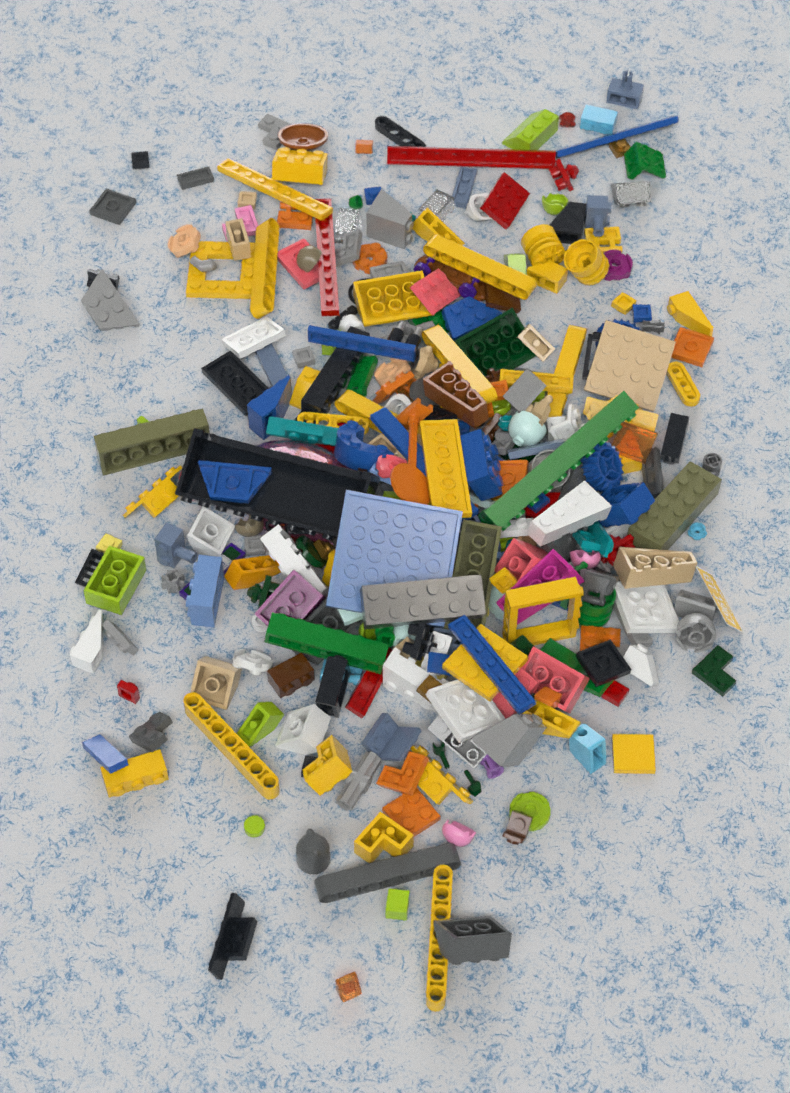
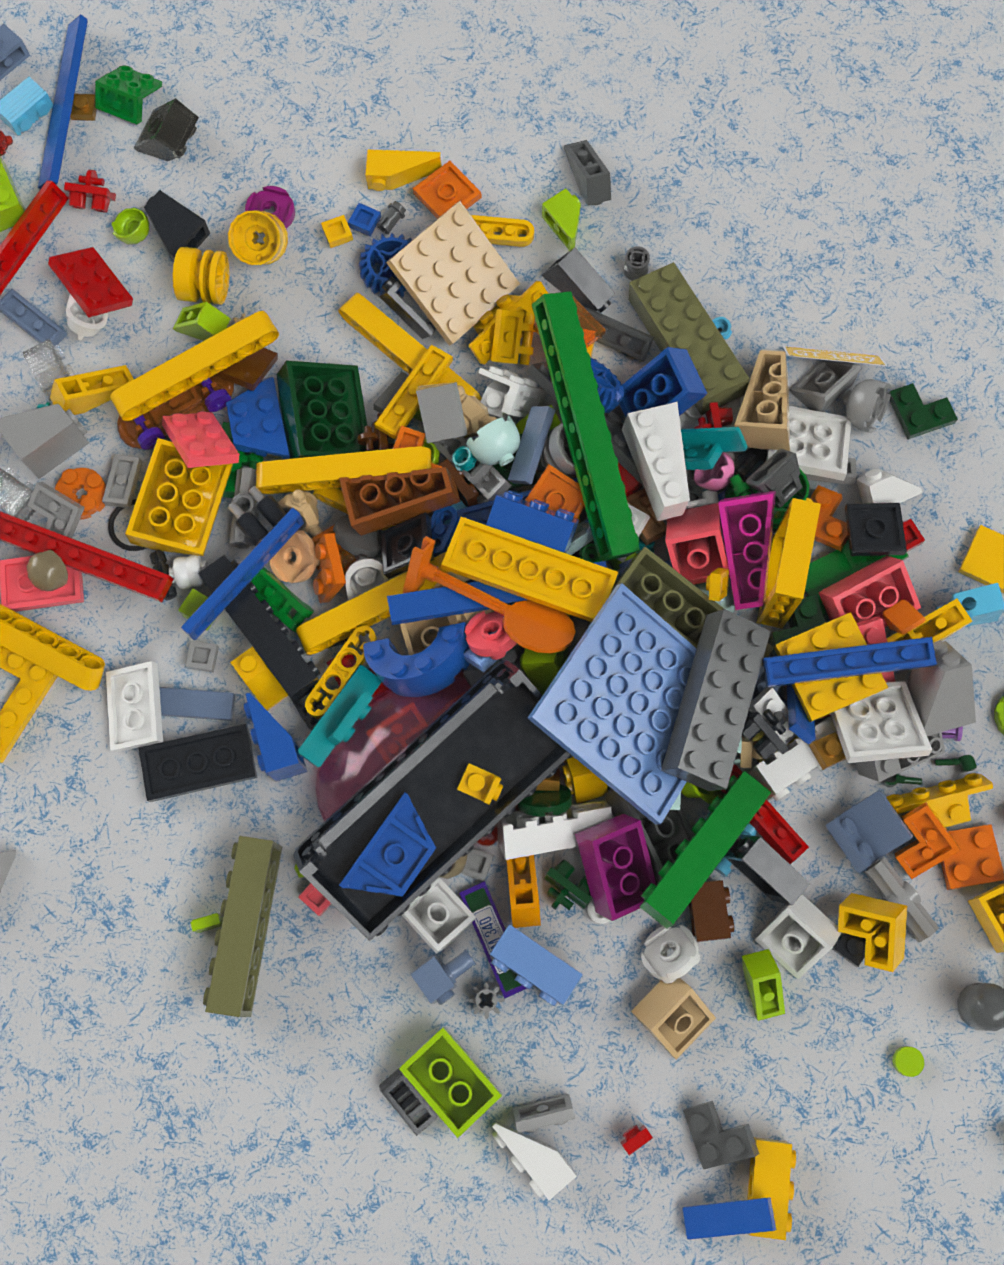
camera: 60 degrees left, 20 degrees up
(108, 540) = (378, 1061): light yellow plate -> none
(159, 497) = (332, 957): yellow bracket -> none
(232, 753) = (793, 1031): yellow beam -> none
(298, 505) = (480, 784): none -> yellow bracket
(536, 342) = (344, 361): tan slope -> none
(549, 276) = (245, 293): yellow slope -> none
(597, 214) = (185, 186): sand blue brick -> none
(610, 237) = (217, 199): yellow plate -> none
(717, 414) = (563, 216): none -> lime slope
(759, 413) = (589, 172): none -> dark grey slope

